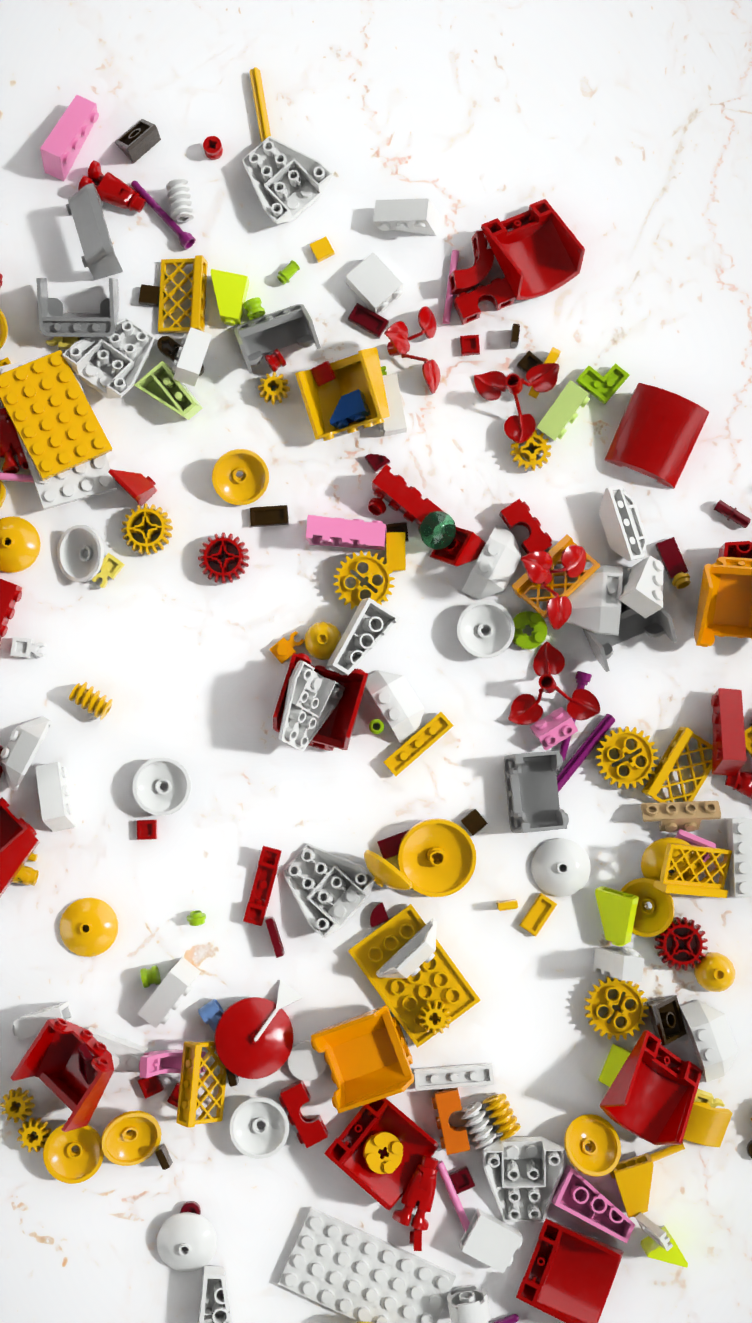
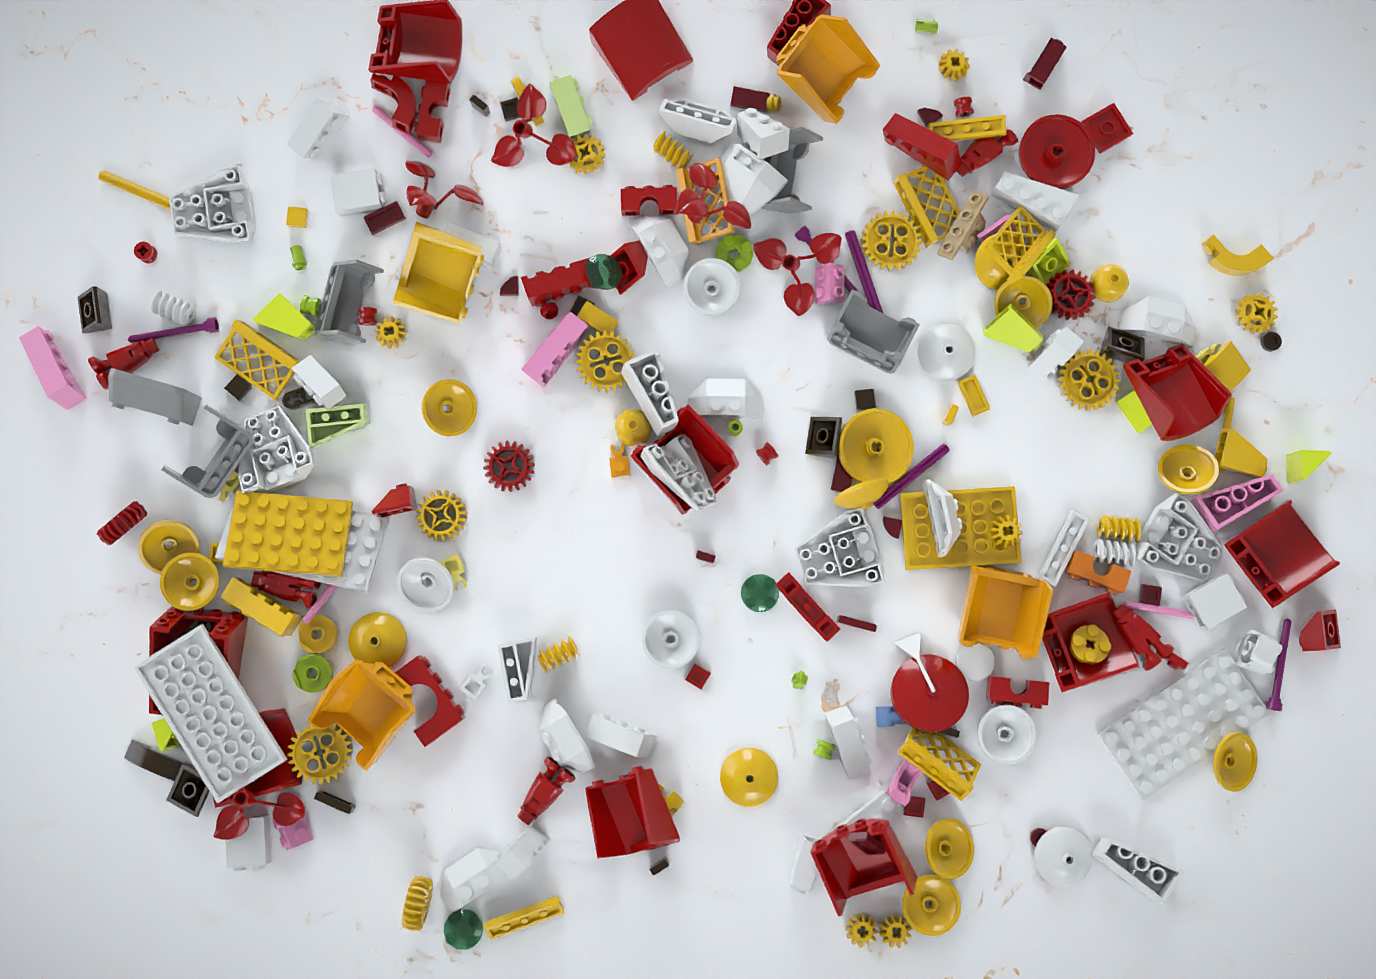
camera: 60 degrees left, 0 degrees up
(58, 673) = (517, 667): none -> white wedge
(163, 1157) = (981, 831): dark brown tile -> none
(249, 837) = (759, 593): none -> clear green dish
(251, 772) = (705, 557): none -> dark red tile
(269, 516) = (497, 406): dark brown tile -> none
(323, 373) = (406, 282): red tile -> none
(349, 409) = (452, 279): blue slope -> none
(372, 767) = (766, 453): none -> red wheel
(418, 744) = (771, 403): yellow plate -> none
(418, 806) = (823, 436): none -> dark brown slope
(434, 904) = (913, 474): none -> magenta axle
(469, 345) = (462, 147): red tile -> none
(580, 521) = (671, 151): none -> yellow piece
(602, 387) = (570, 62): lime plate -> none
(654, 1231) = (1287, 462): white tile -> none
(698, 908) = (1050, 262): none -> neon yellow slope
(732, 514) = (745, 27): dark red axle -> none

